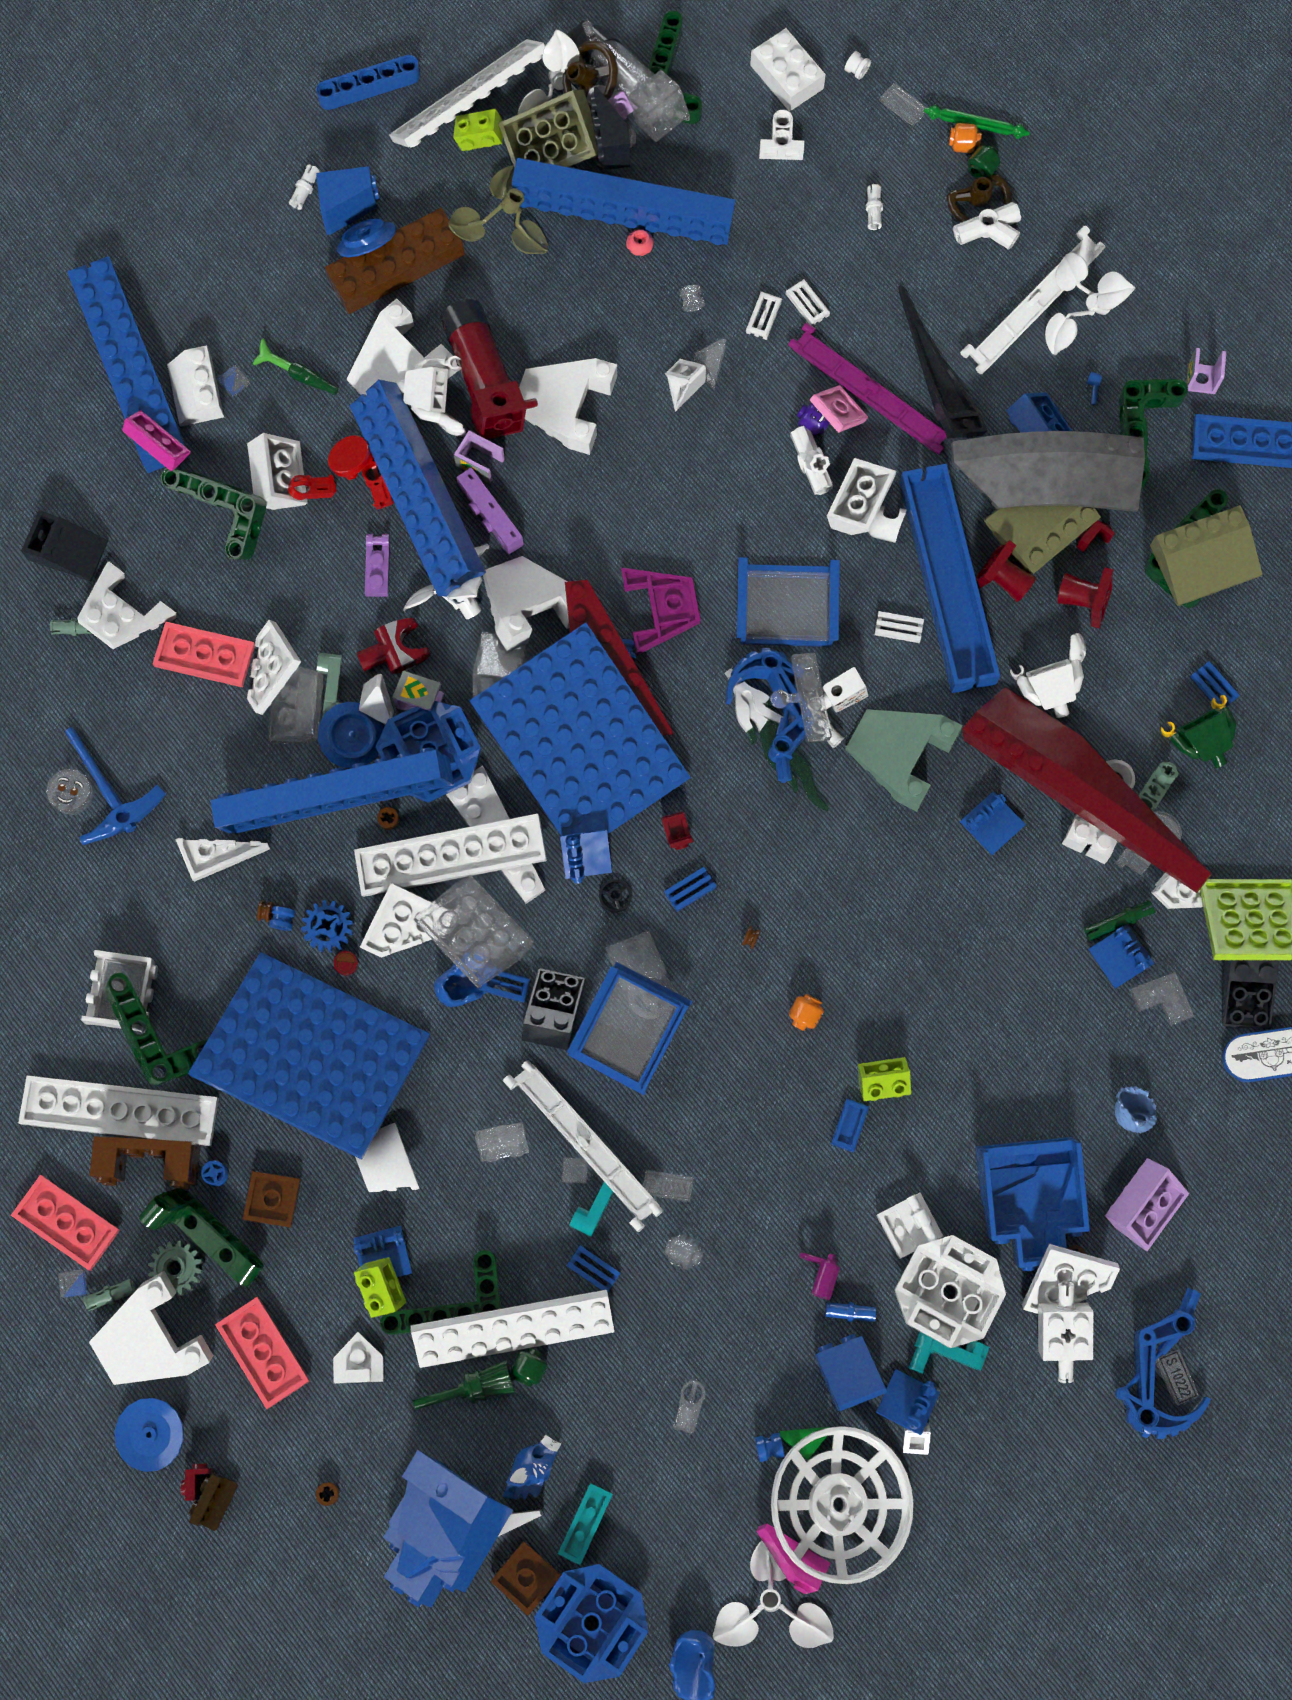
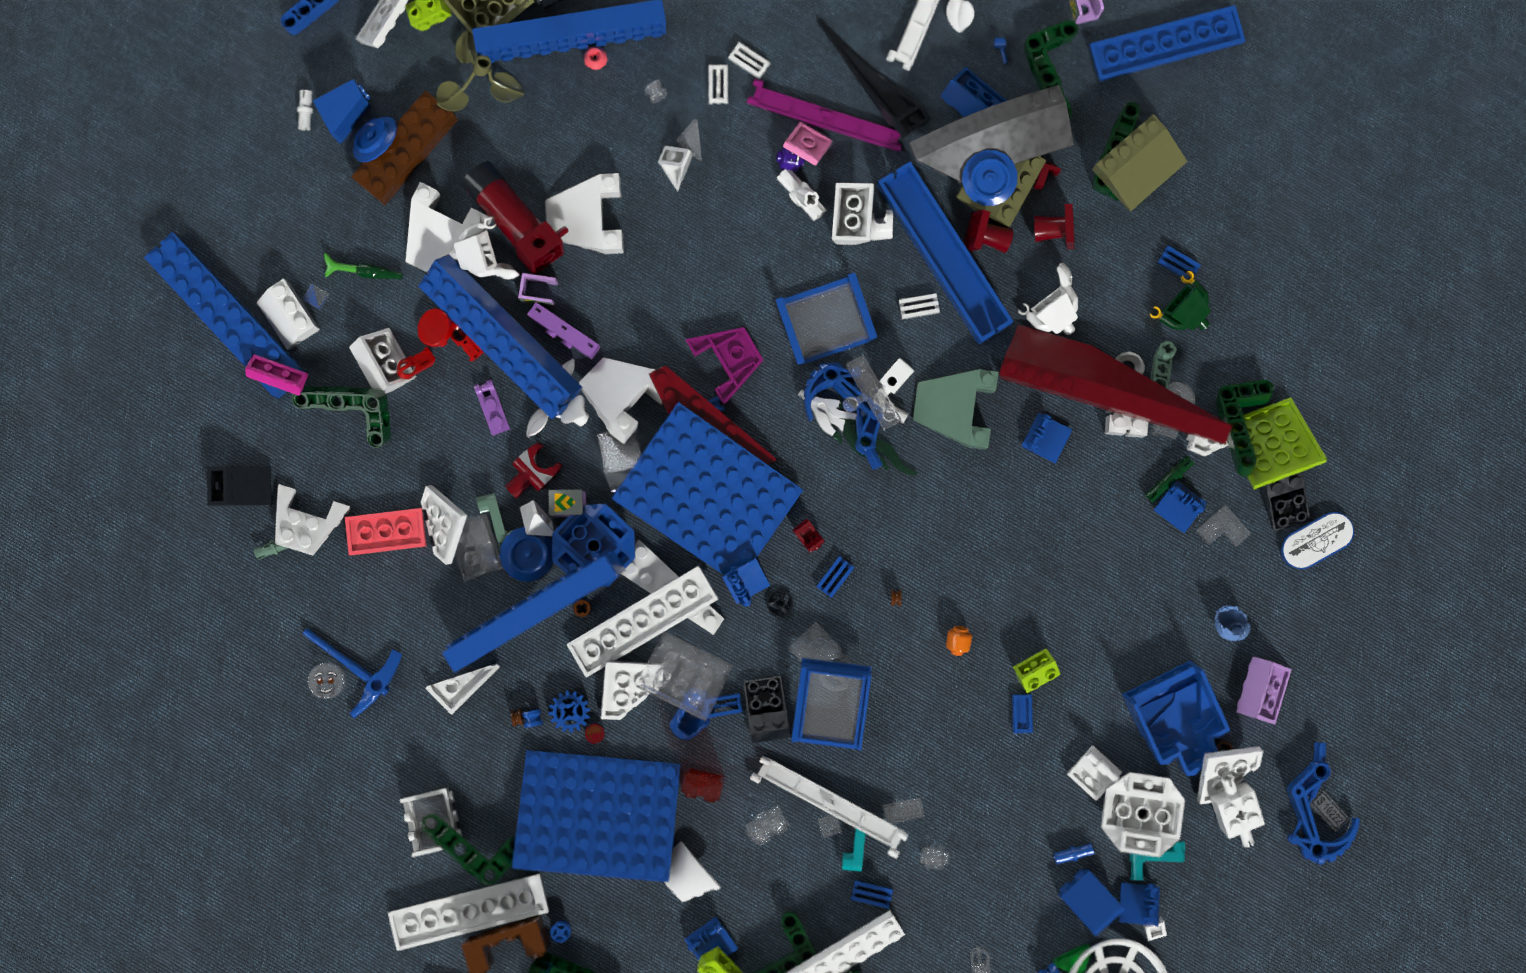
camera: 20 degrees left, 10 degrees up
(272, 1199) = (611, 934): reddish brown plate -> none
(445, 1062) = (702, 784): none -> clear red slope
(826, 1275) = (1047, 835): magenta piece -> none
(1029, 509) = (989, 177): none -> blue piece
(1221, 857) = (1233, 405): none -> dark green beam

